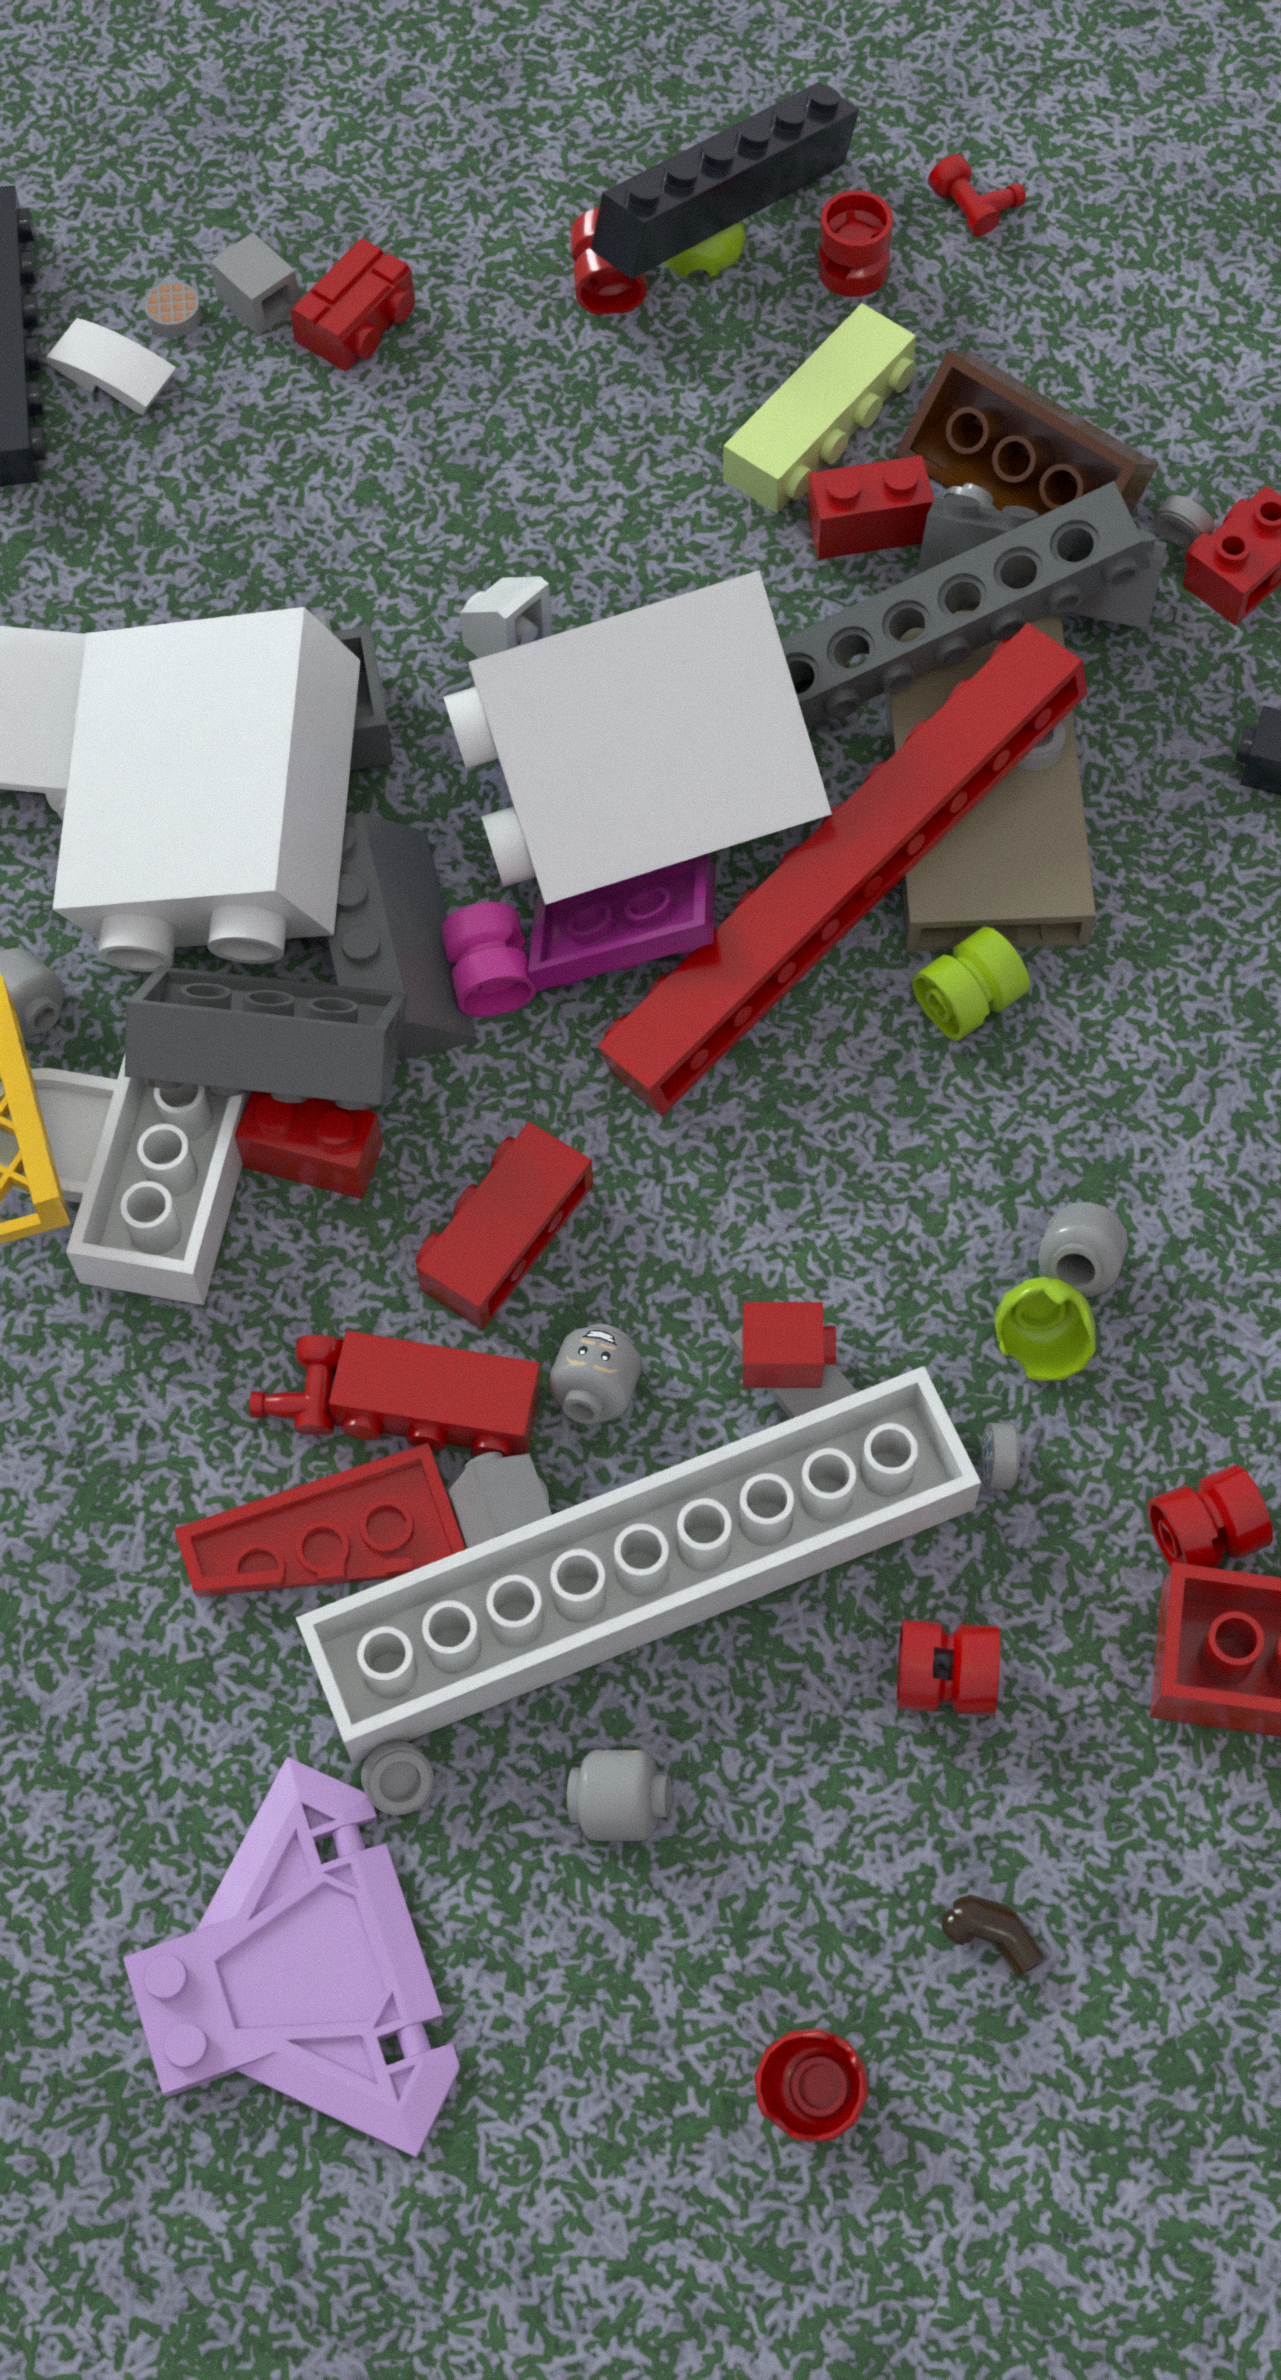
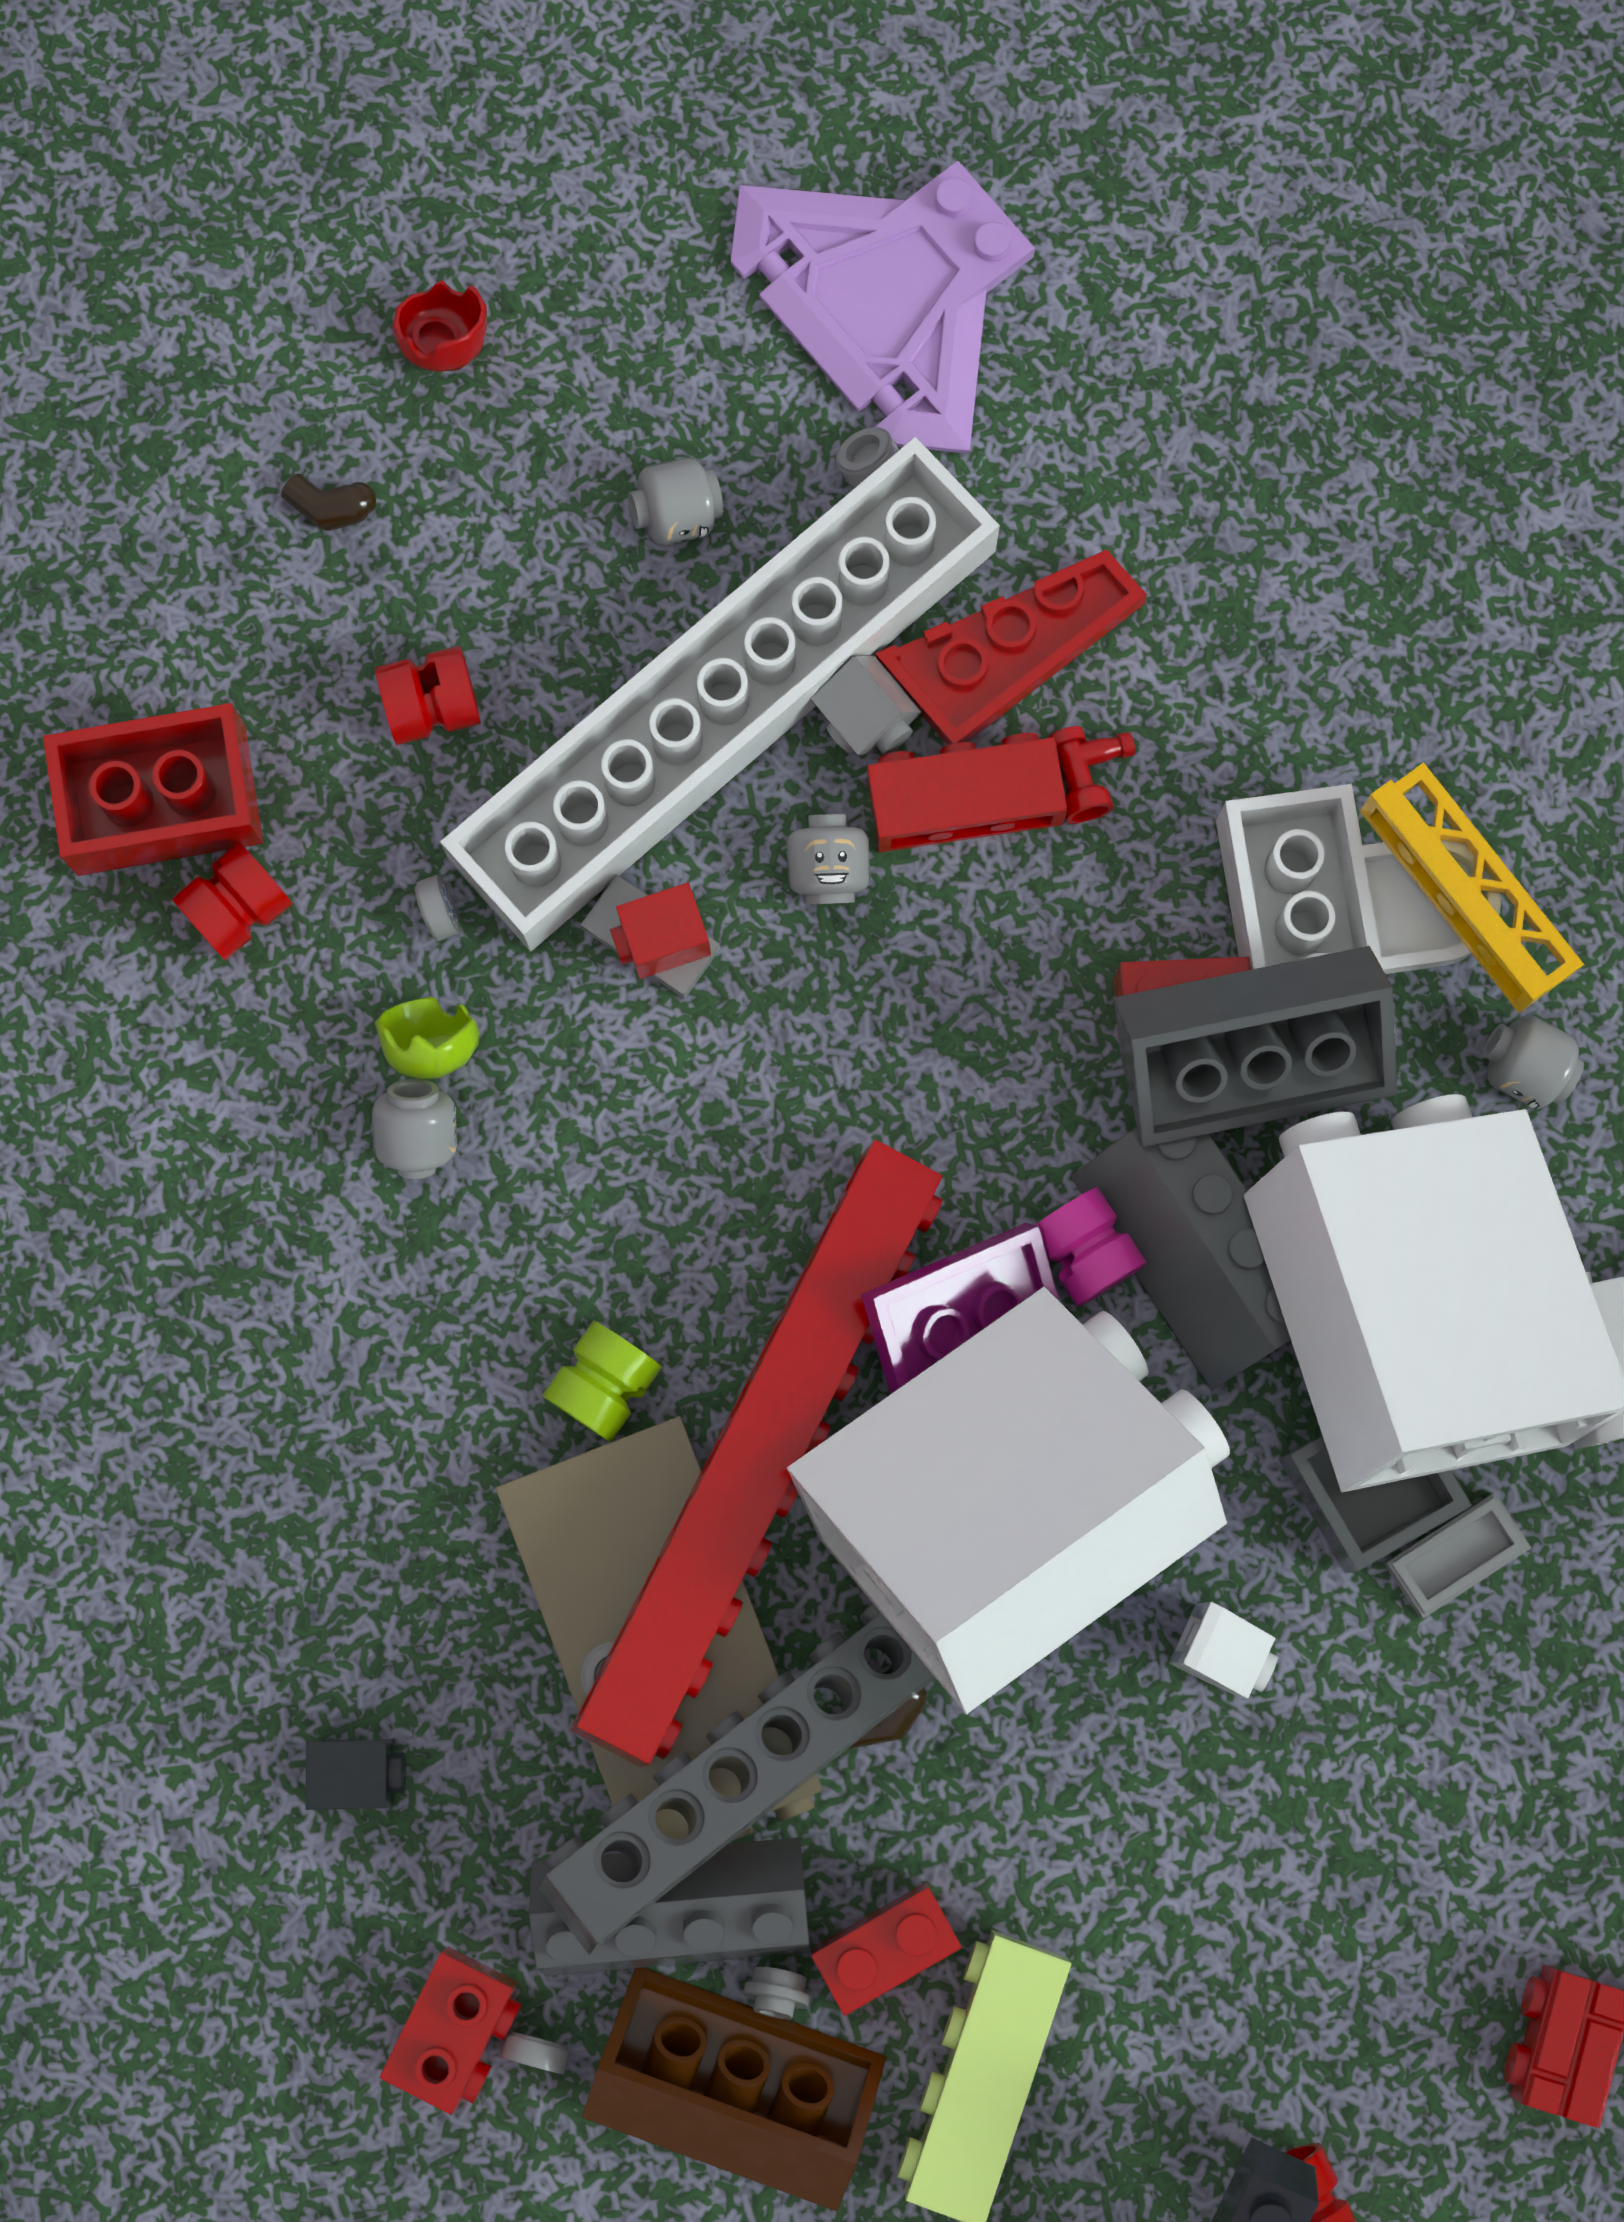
camera: 160 degrees right, 15 degrees up
(503, 1224) = (968, 979): red brick -> none

